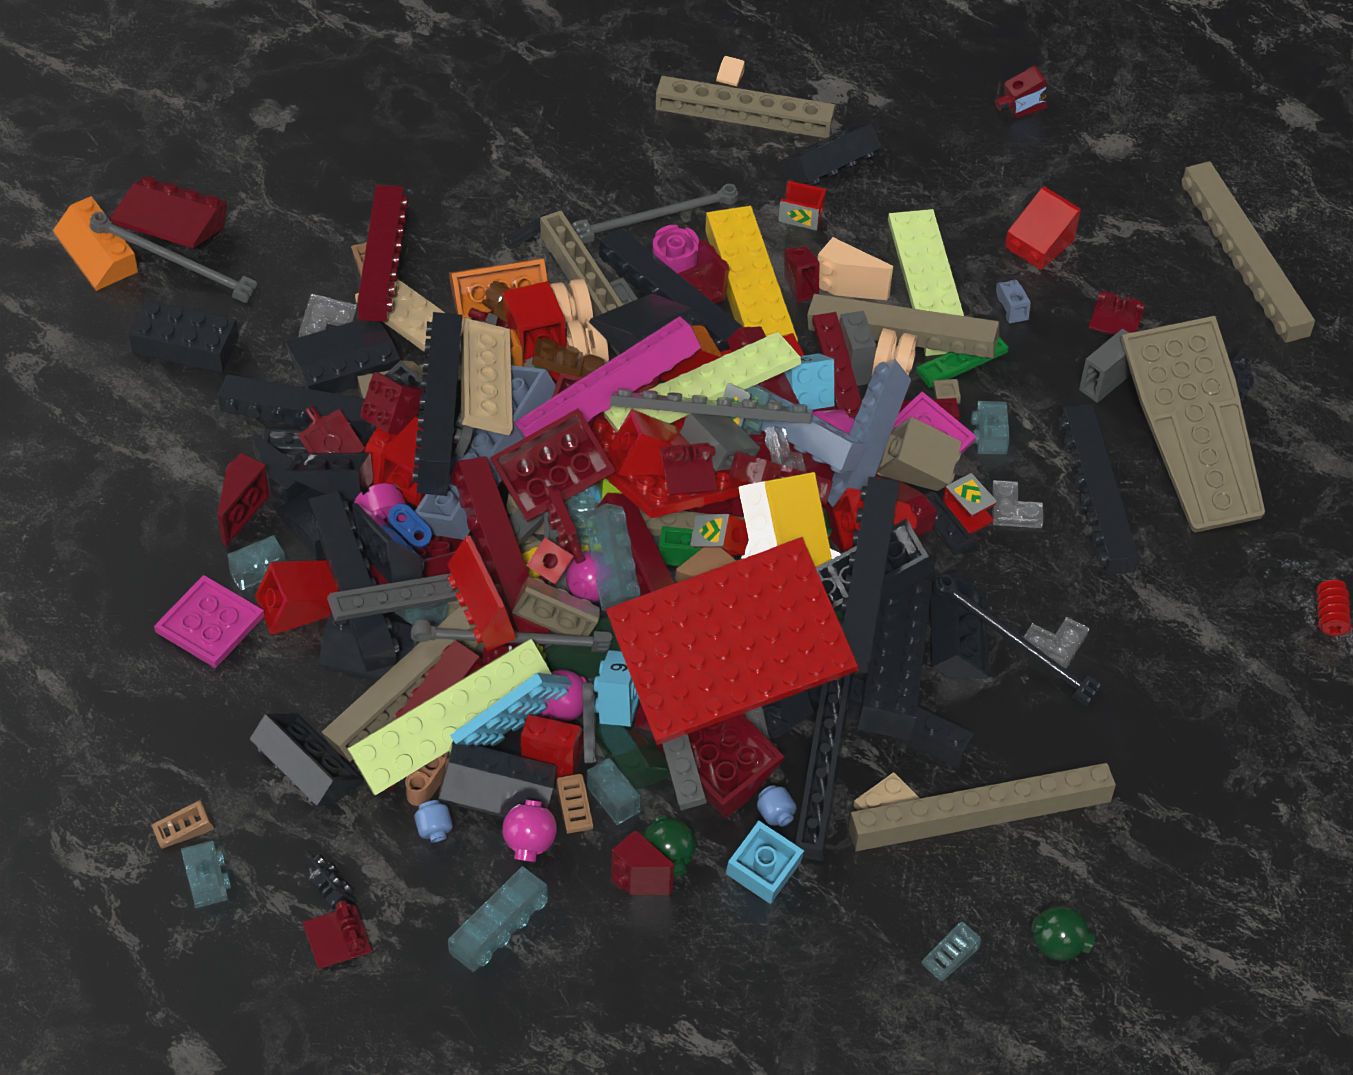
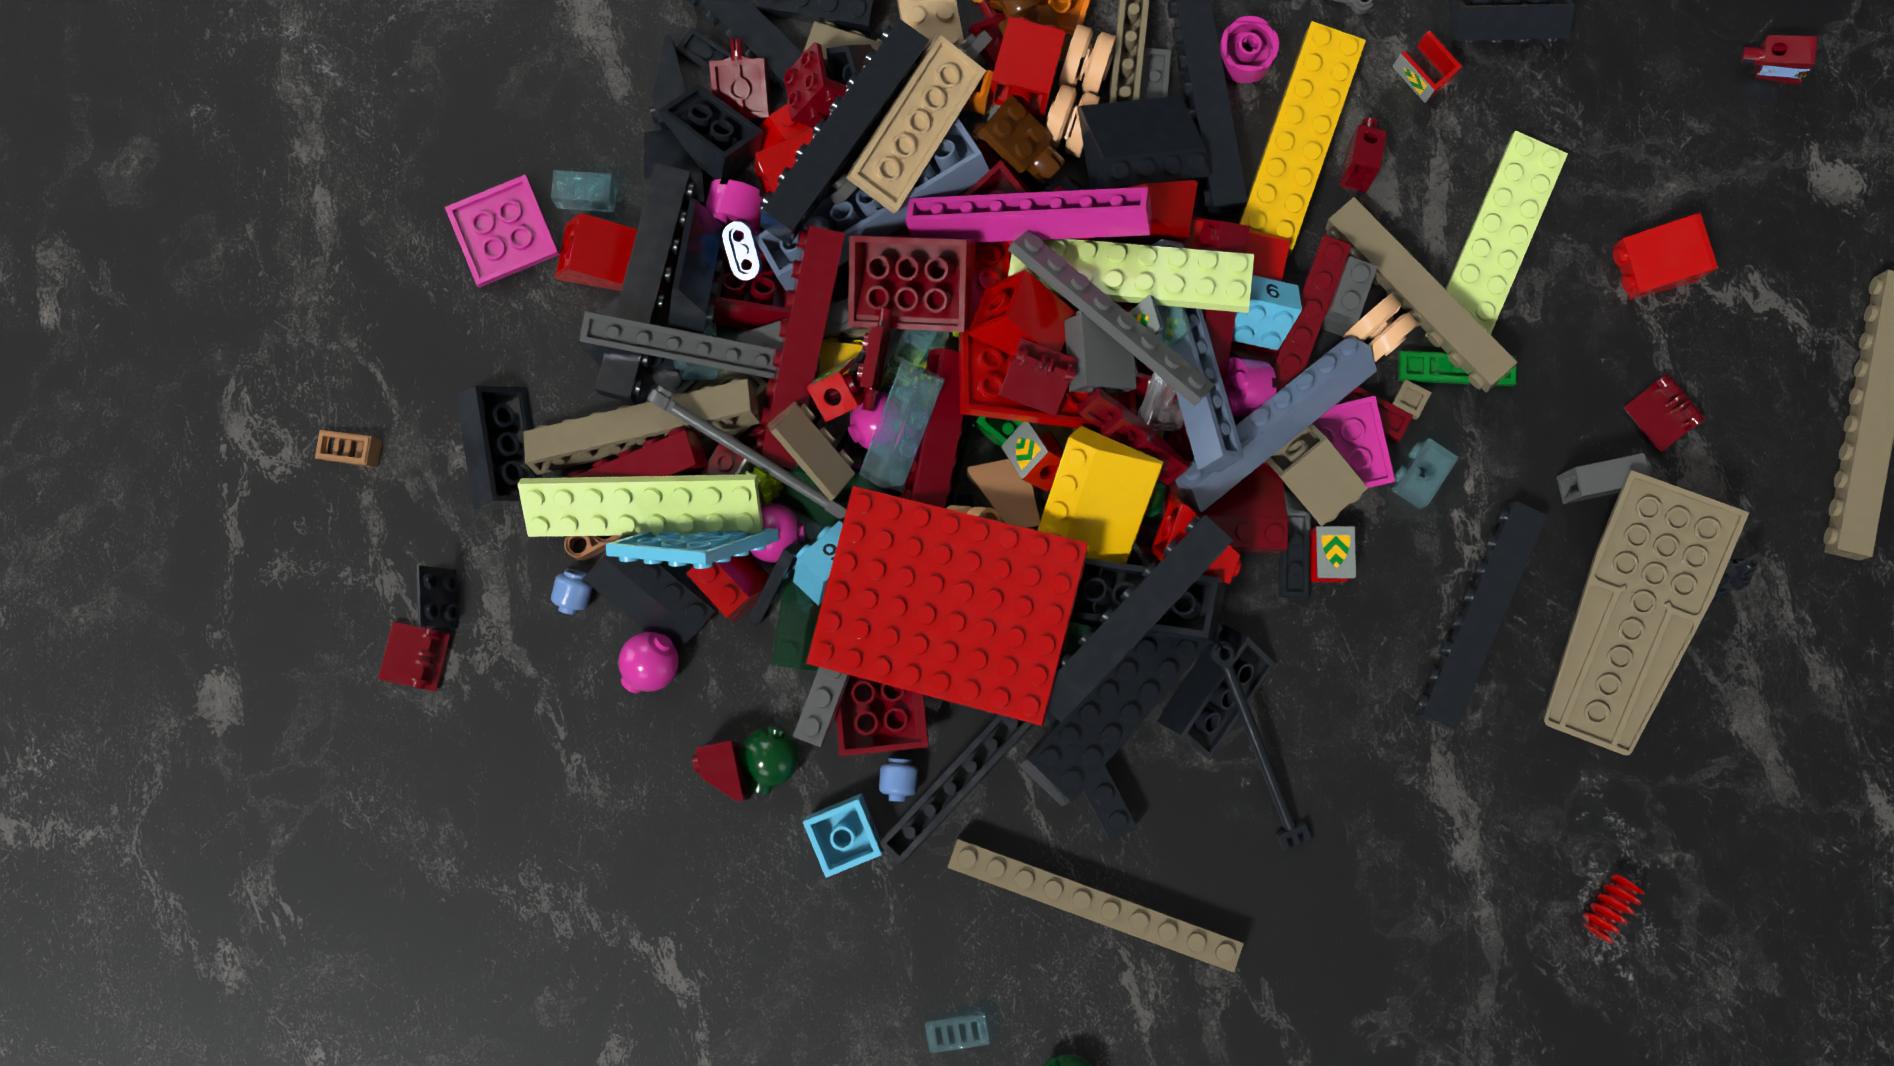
camera: 30 degrees right, 30 degrees up
(204, 874) = (329, 502): clear light blue brick -> none
(242, 495) = (607, 104): dark red slope -> none
(479, 596) = (734, 401): red slope -> none
(498, 919) = (564, 734): clear light blue brick -> none
(571, 787) = (729, 647): medium nougat slope -> none
(613, 791) = (756, 665): clear light blue brick -> none
(709, 274) = (1255, 104): dark red bracket -> none
(853, 272) = (1413, 192): light nougat slope -> none
(886, 792) = (1014, 836): tan wing -> none
(1012, 512) = (1372, 581): clear plate -> none
(1013, 300) = (1566, 326): sand blue leg -> none
(1058, 646) = (1299, 773): clear plate -> none

